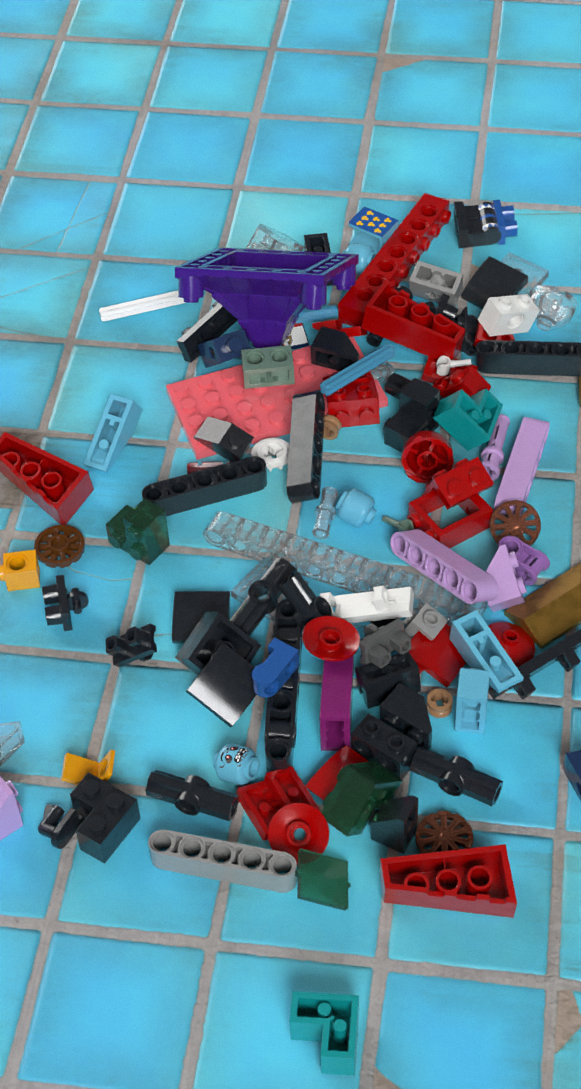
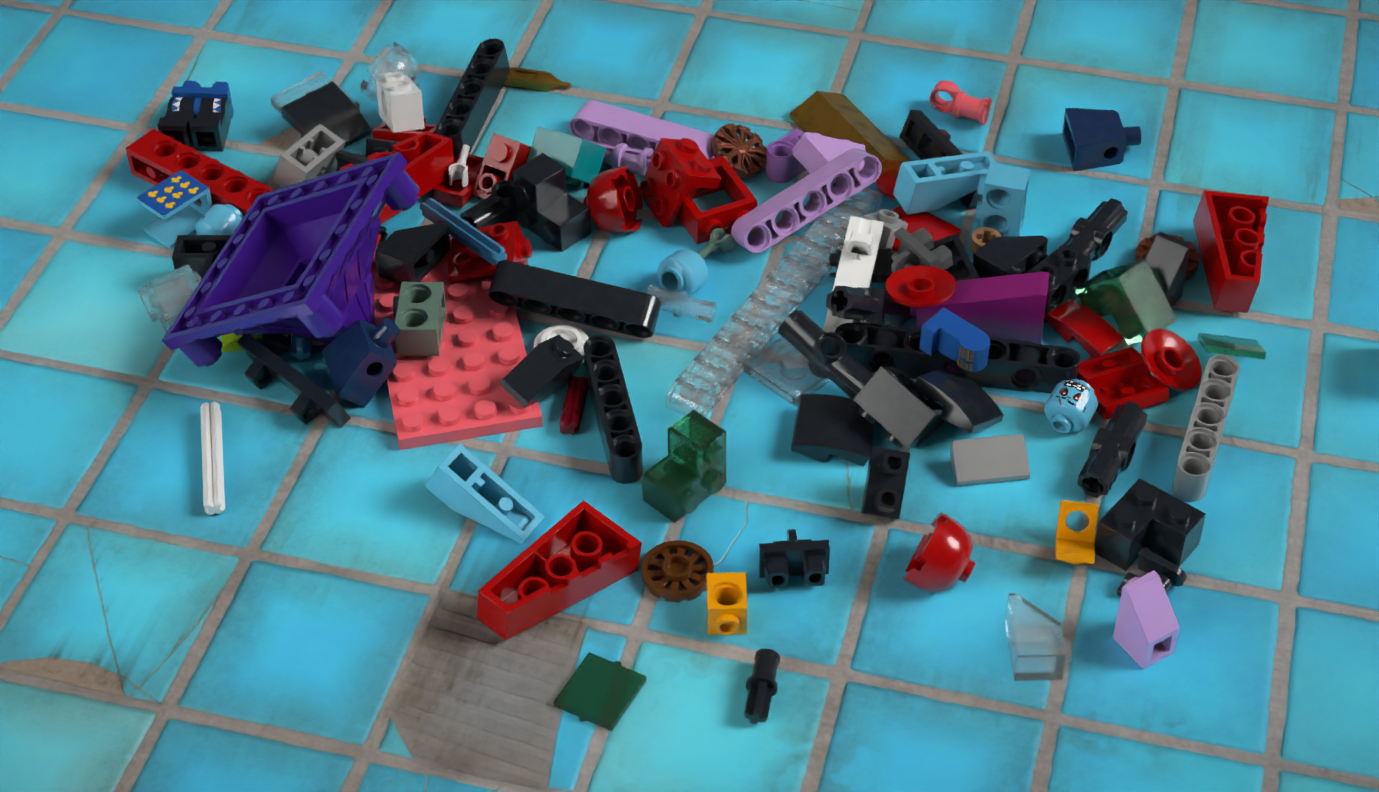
camera: 85 degrees left, 5 degrees down
(62, 683) = (941, 556): none -> red cylinder
(175, 717) = (989, 459): none -> light grey slope

